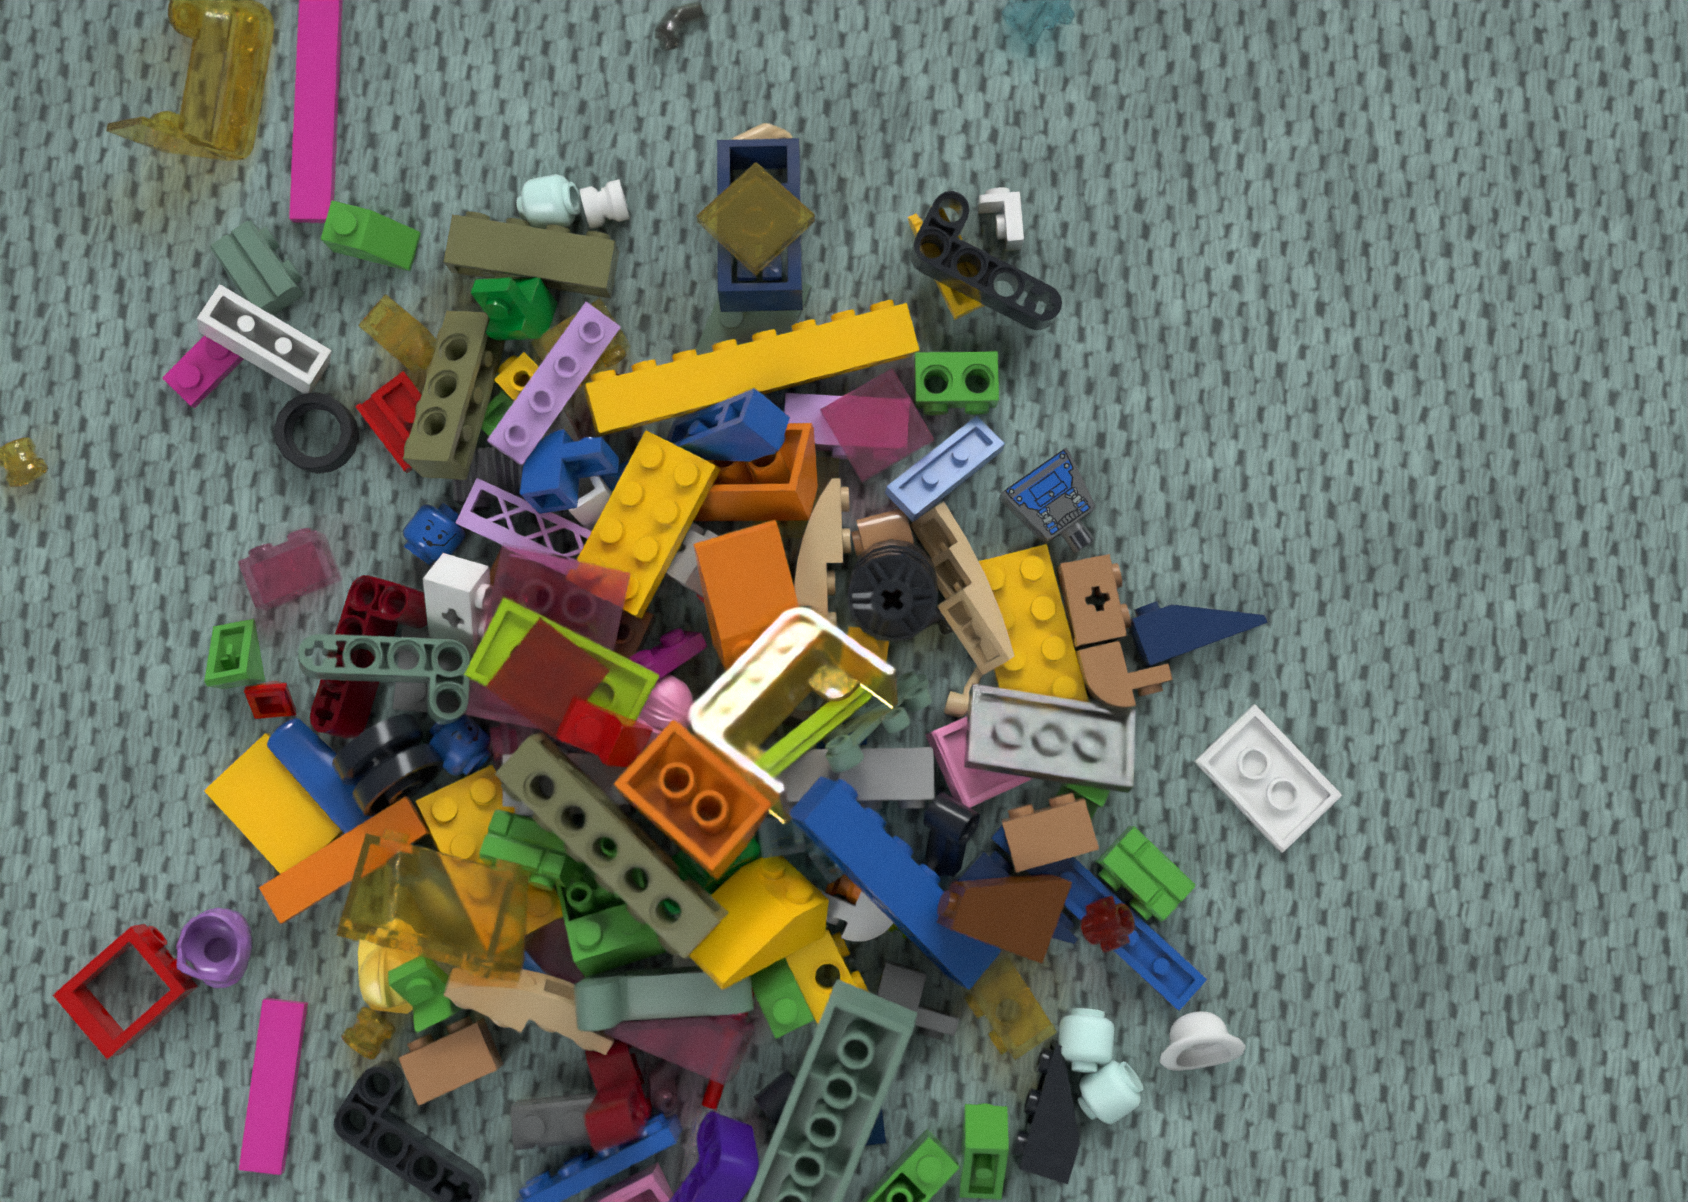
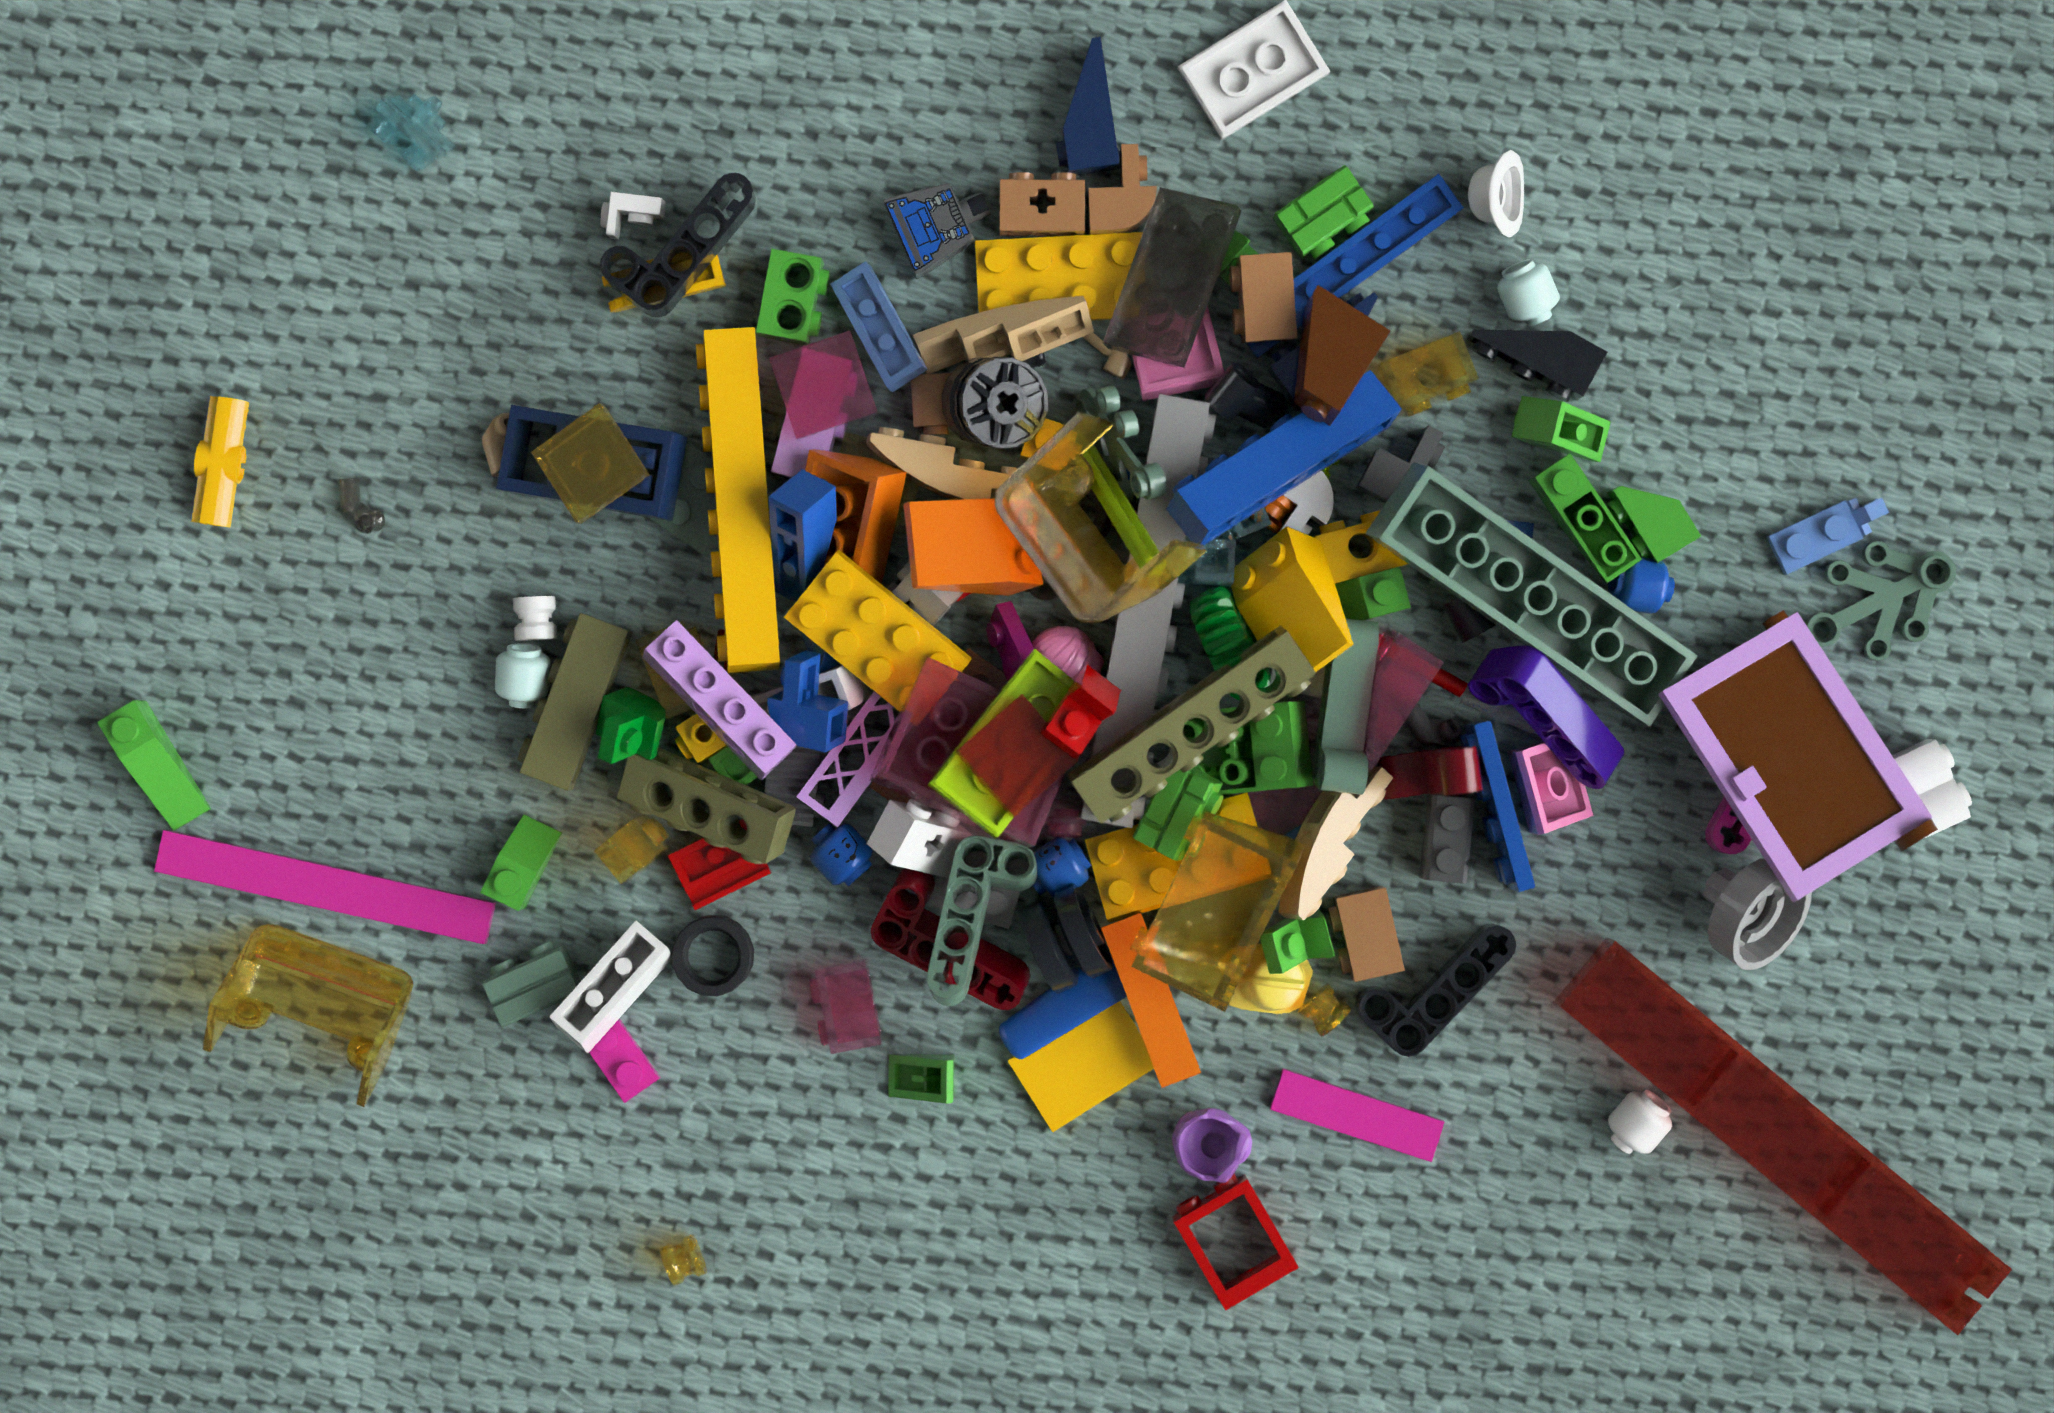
camera: 80 degrees left, 5 degrees up
(270, 700) = (975, 1049): red slope -> none
(694, 798) = (1164, 634): orange slope -> none
(1086, 1039) = (1473, 304): light aqua head -> none
(1107, 924) = (1365, 259): clear red gear -> none

